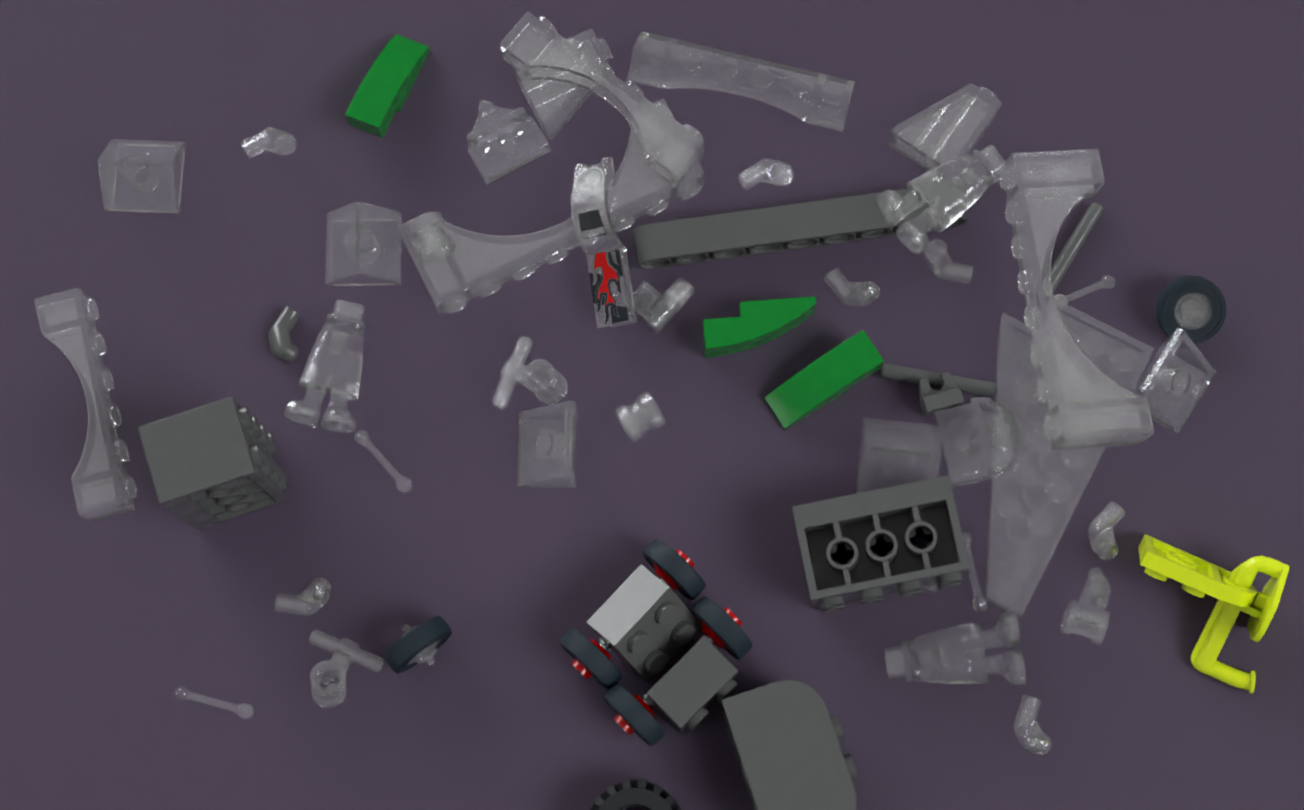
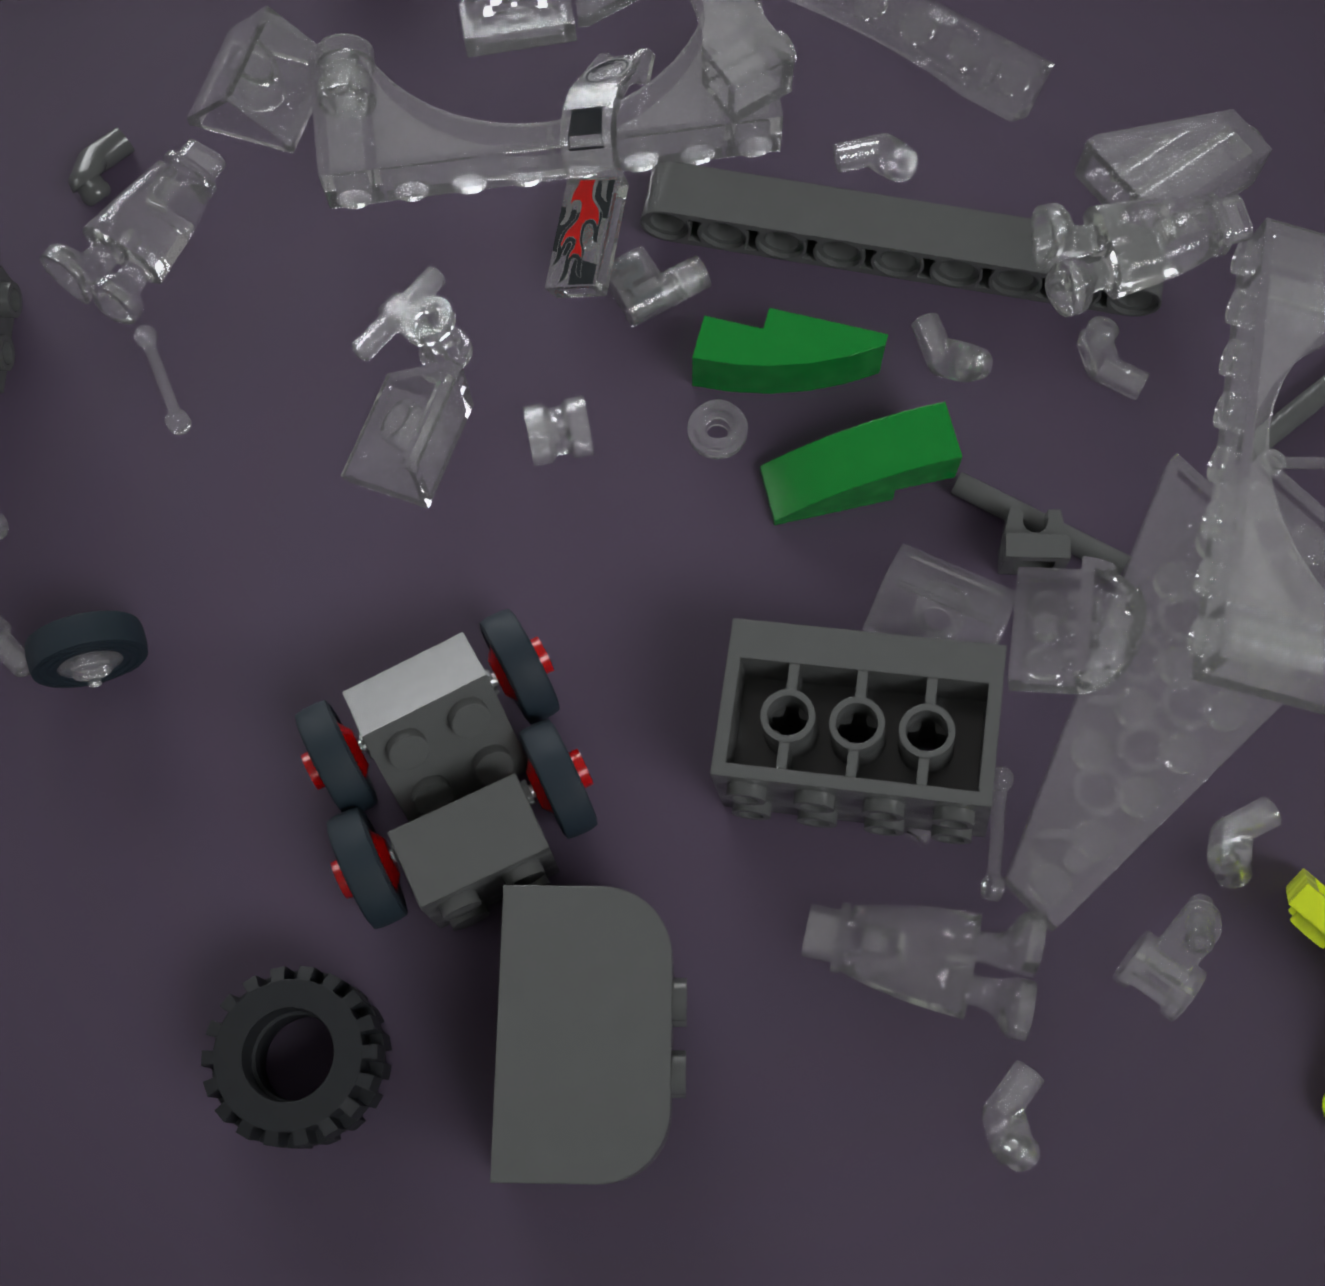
camera: 20 degrees right, 5 degrees down
(731, 372) = (717, 413): none -> clear plate

